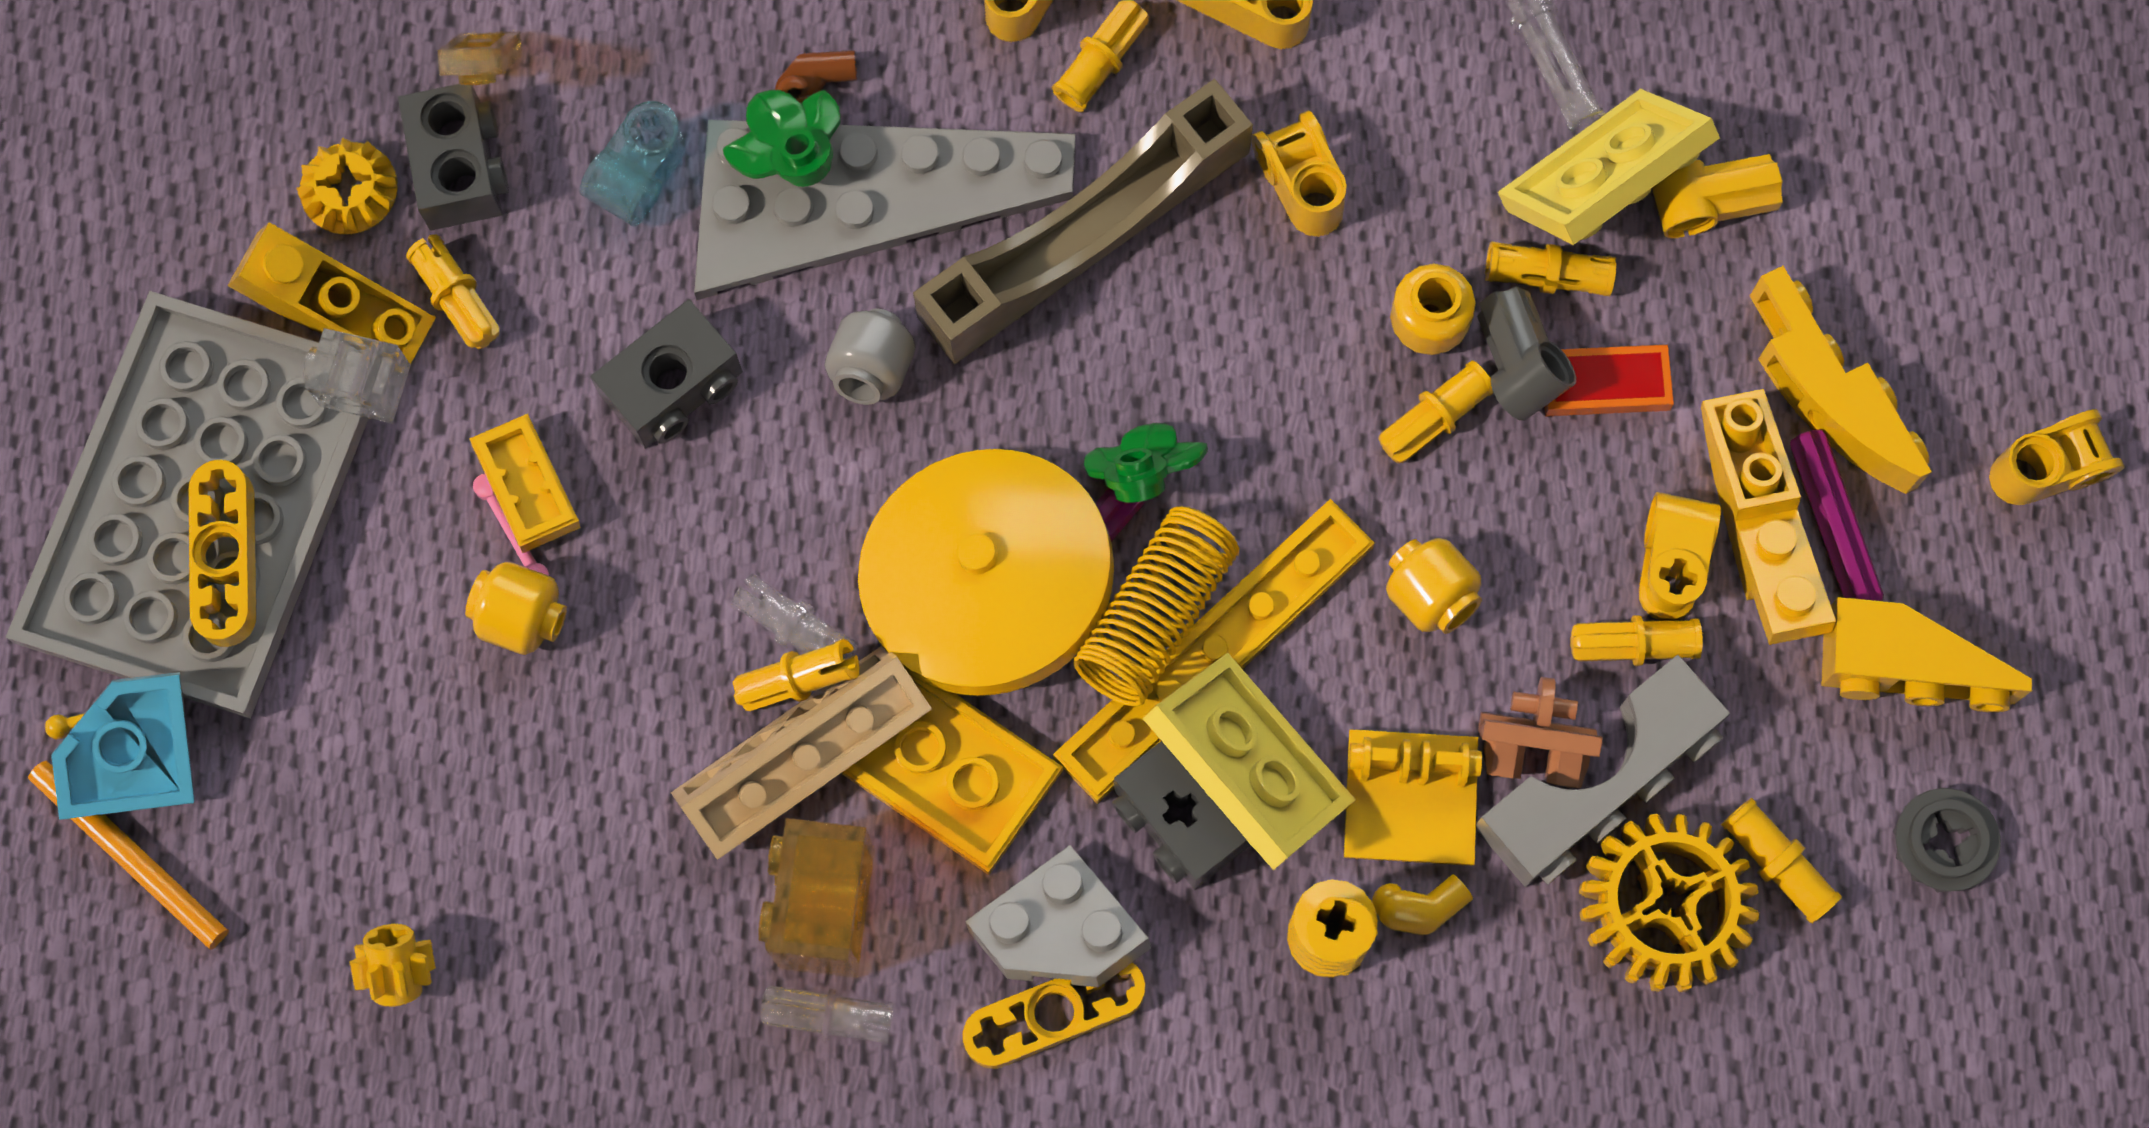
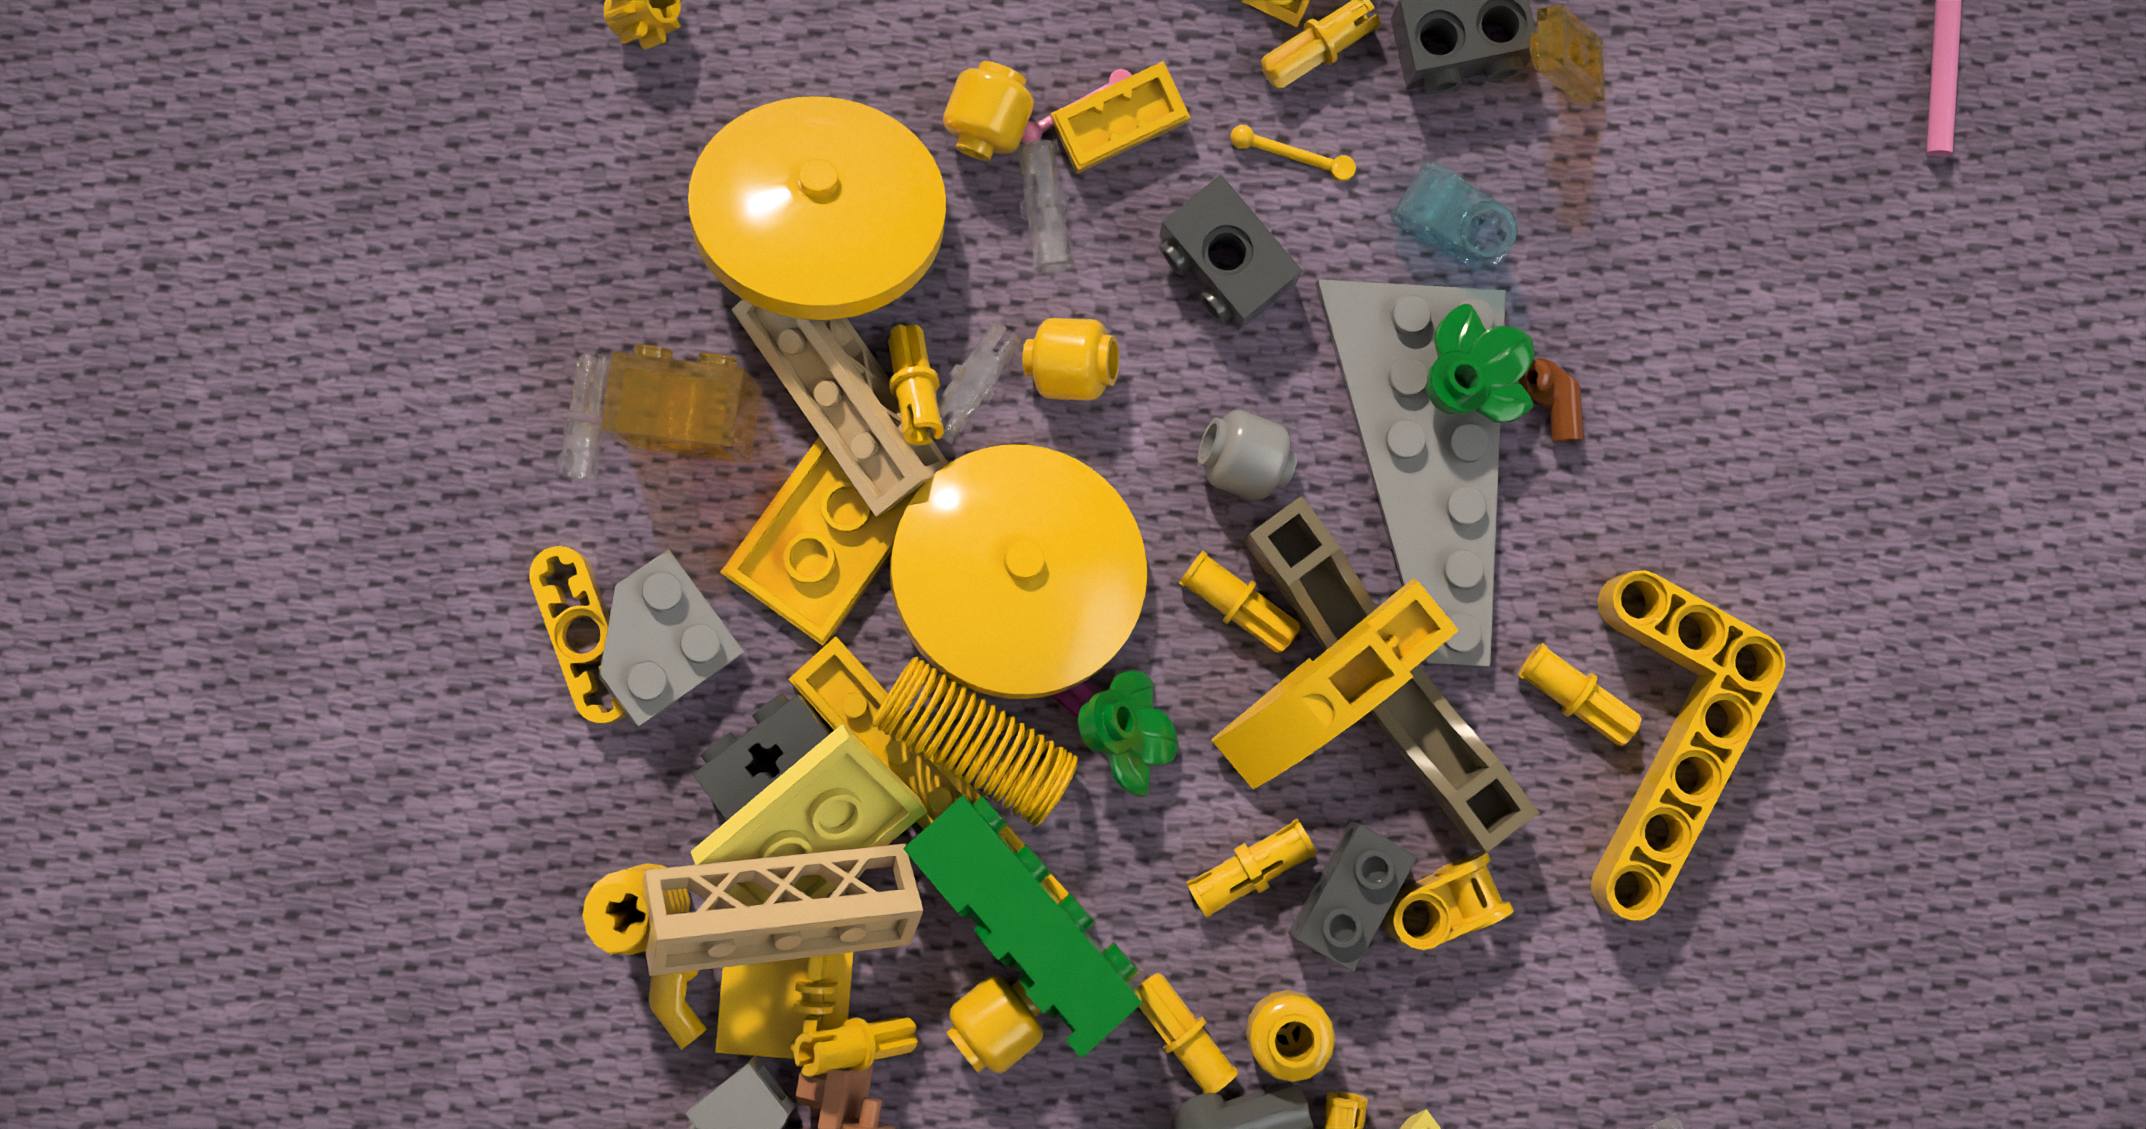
camera: 85 degrees right, 10 degrees up
(572, 561) = (1045, 206): none -> clear pin
(581, 275) = (1341, 168): none -> yellow hinge
(613, 772) = (817, 208): none -> yellow dish
(772, 524) = (1071, 359): none -> yellow head
(1015, 365) = (1240, 603): none -> yellow axle
(1102, 266) = (1336, 687): none -> yellow slope
(1274, 350) = (1252, 868): none -> yellow pin
(1297, 254) = (1352, 895): none -> dark grey brick
(1333, 547) = (1026, 921): none -> green wedge
(1348, 776) = (780, 930): none -> tan fence
(1459, 716) = (854, 1045): none -> yellow axle

